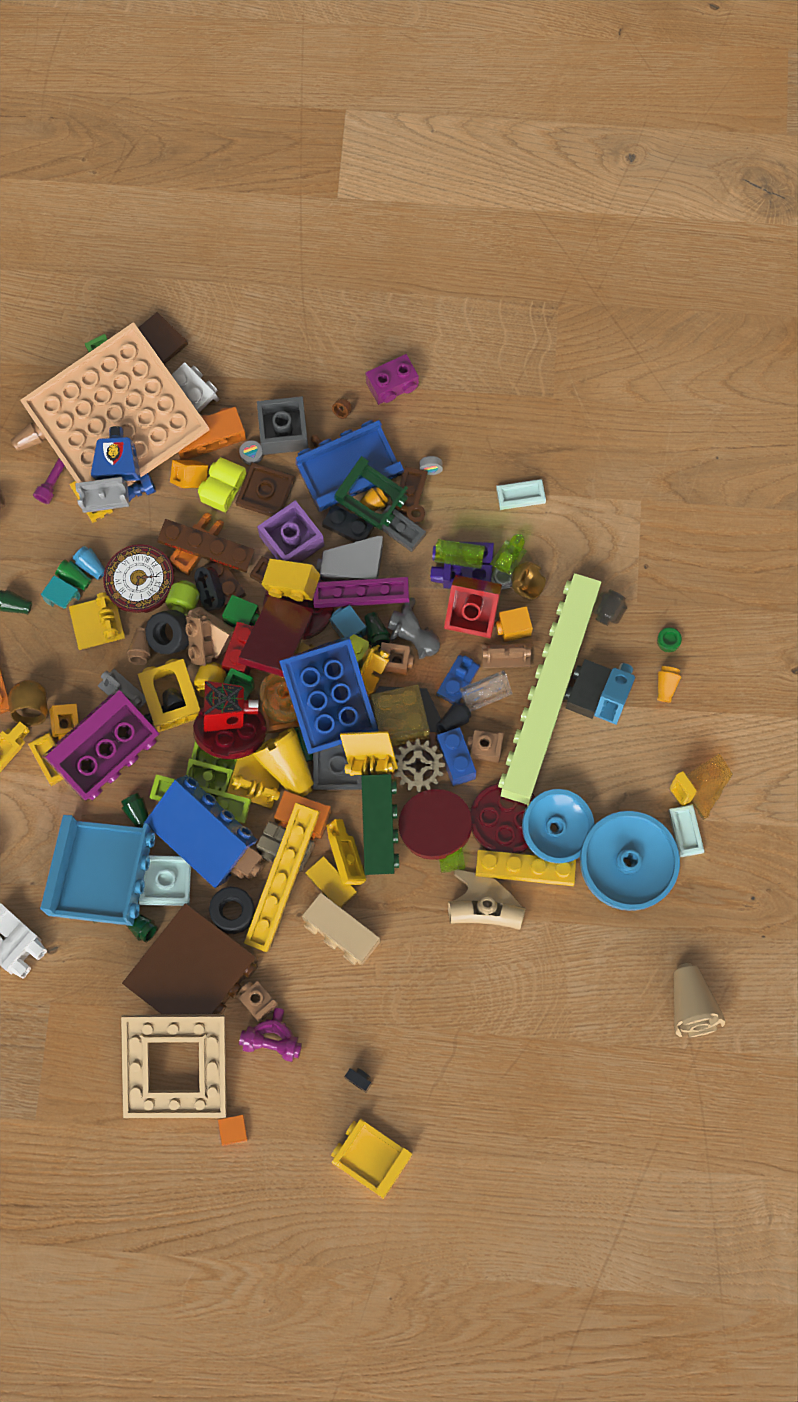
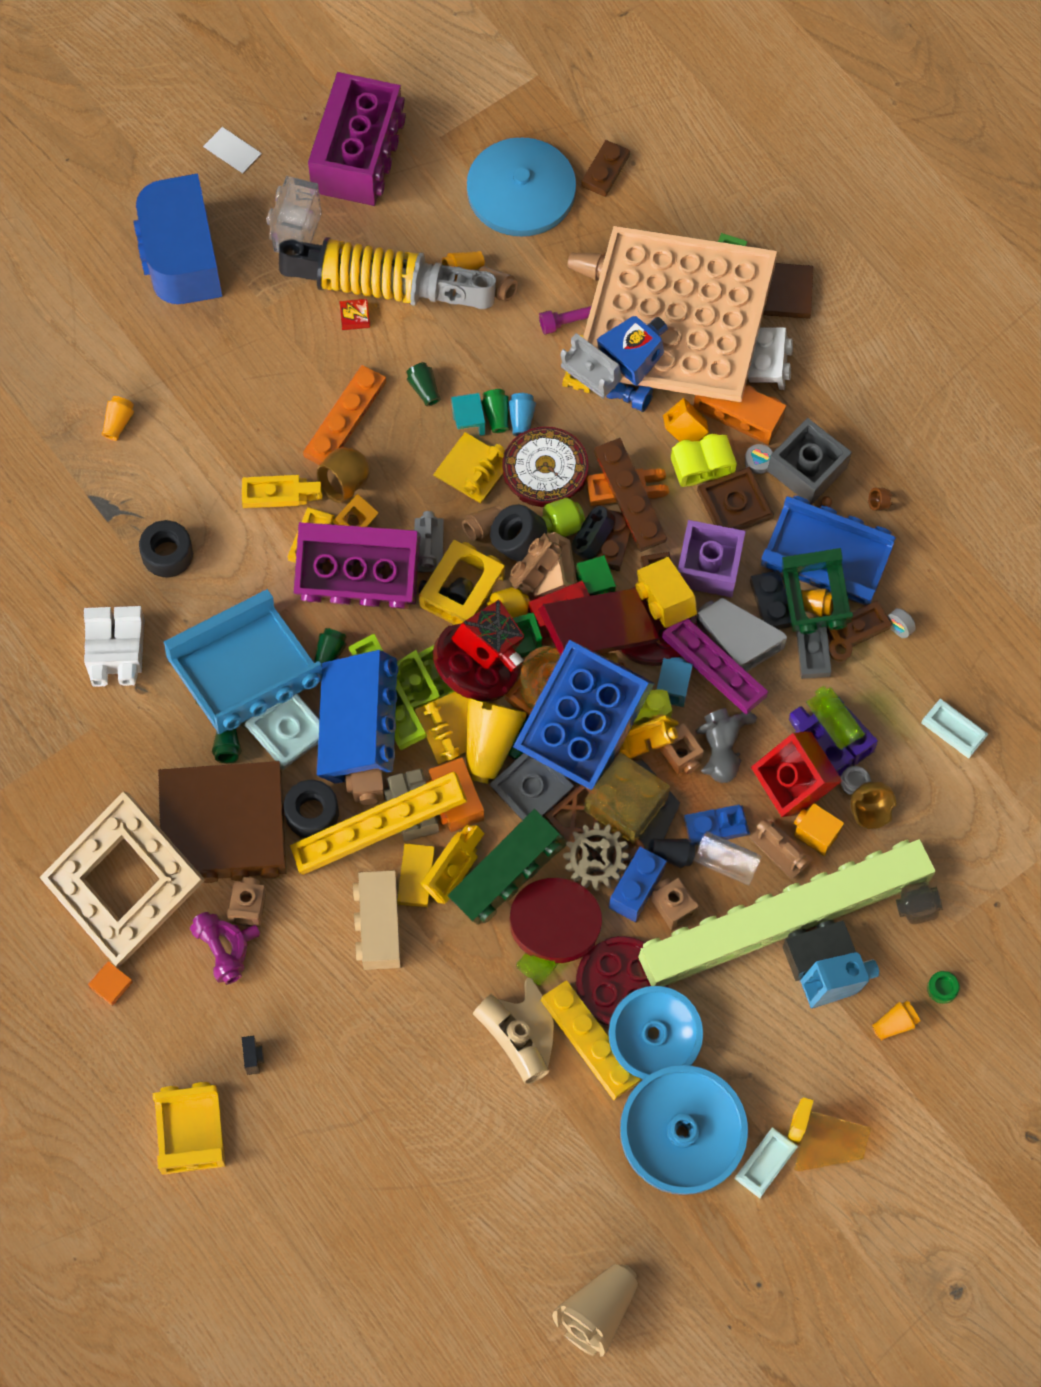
camera: 45 degrees right, 5 degrees down
(368, 753) = (562, 798): yellow hinge -> none
(376, 630) = (693, 710): dark green cone -> none
(392, 379) = (951, 518): magenta brick -> none
(509, 554) = (881, 766): clear neon green hinge -> none

